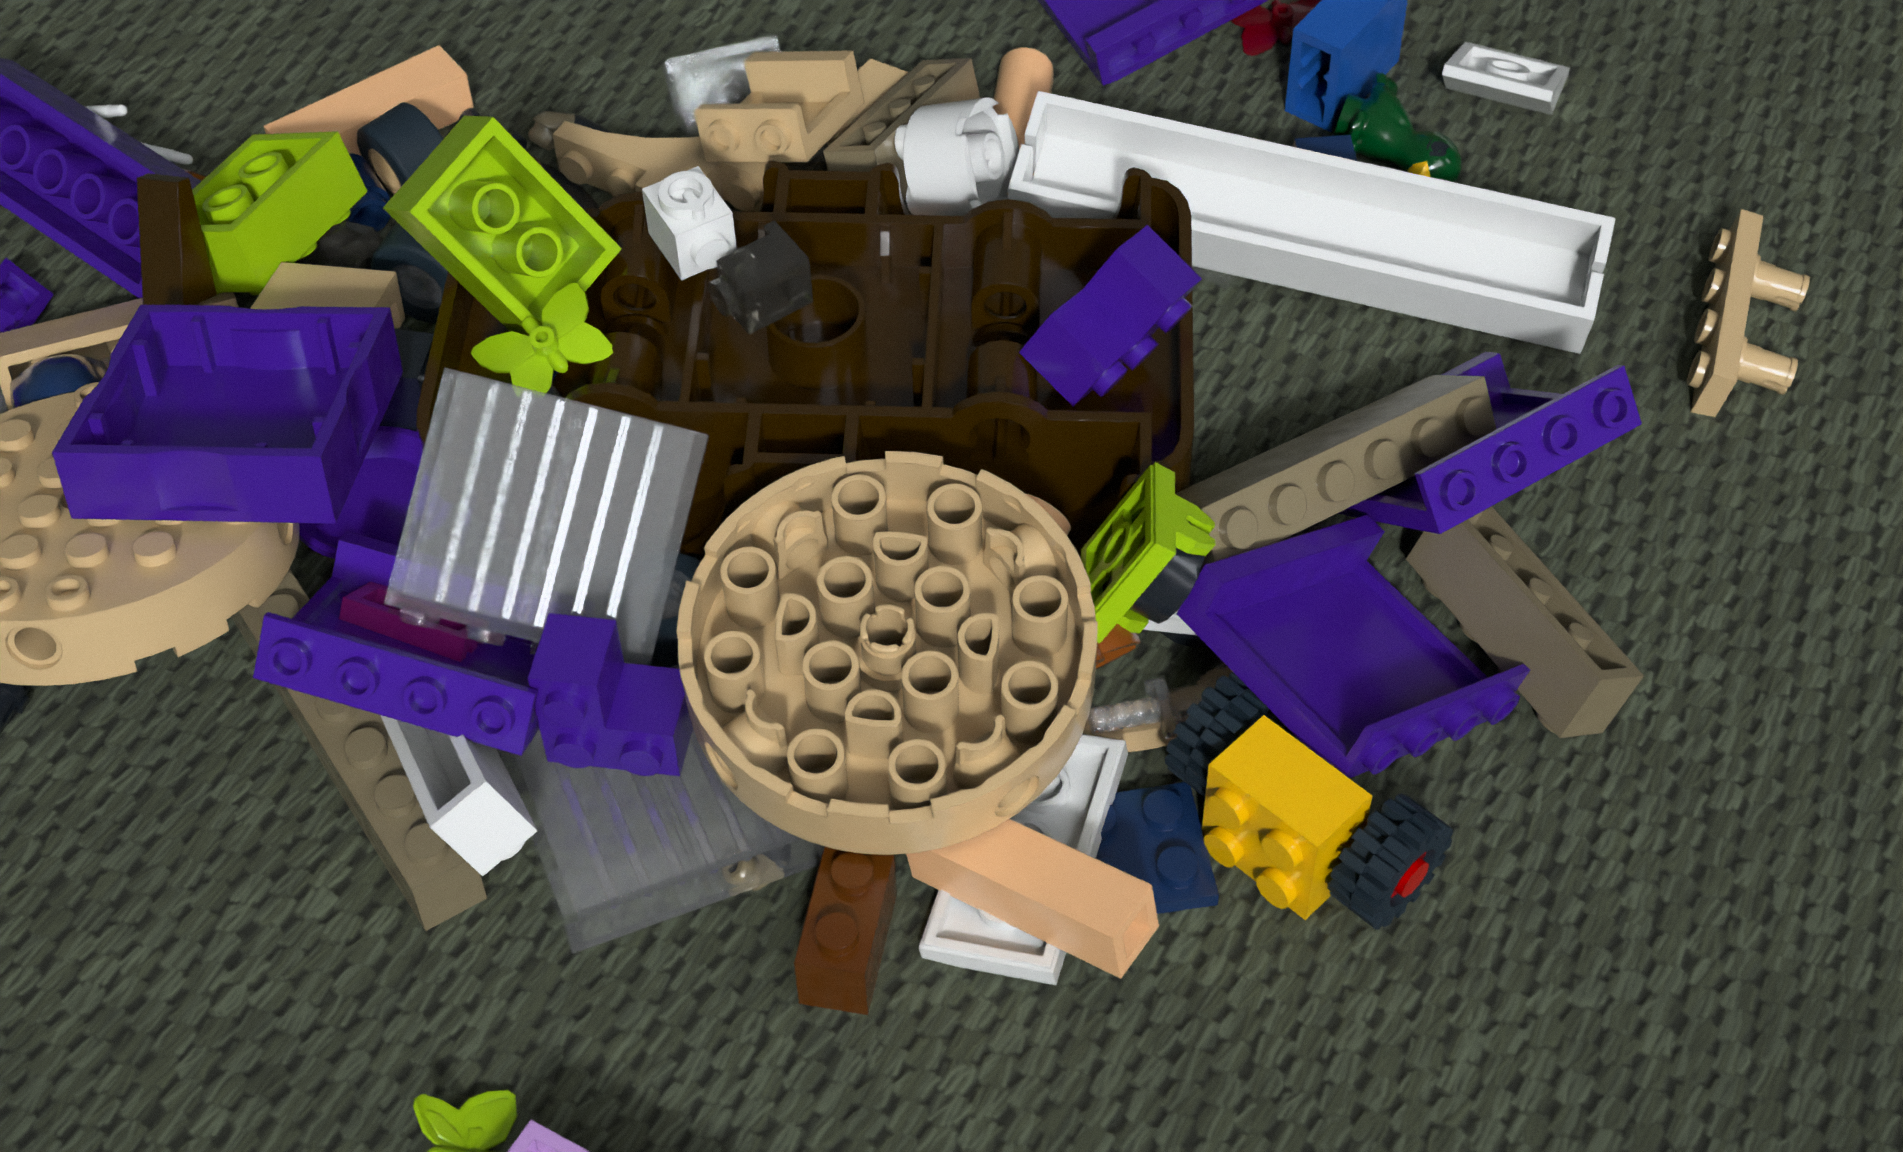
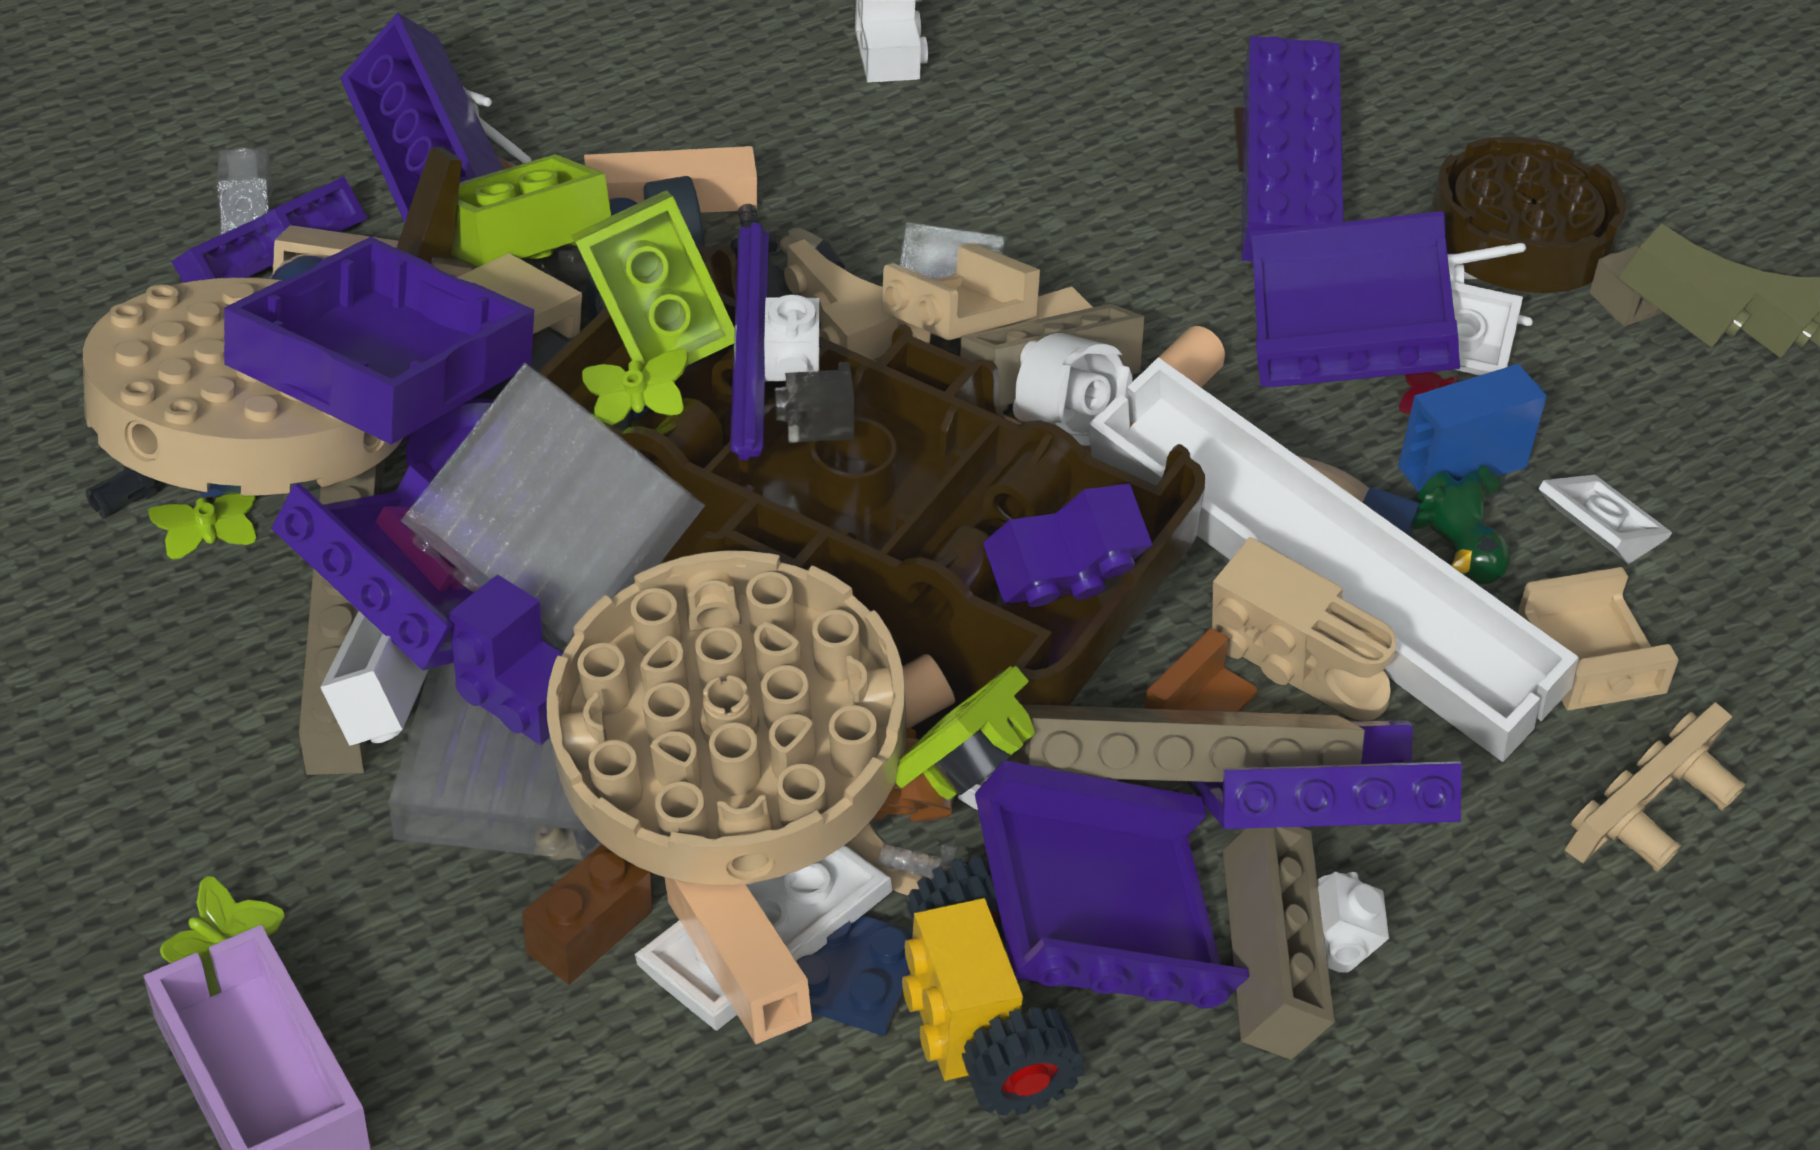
camera: 25 degrees right, 5 degrees down
(113, 706) = (205, 522): none -> lime piece
(639, 246) = (749, 343): none -> dark purple axle
(1270, 408) = (1201, 681): none -> dark orange panel
(1342, 307) = (1303, 631): none -> tan brick
(1568, 177) = (1596, 625): none -> tan panel
(1581, 562) = (1351, 919): none -> white brick

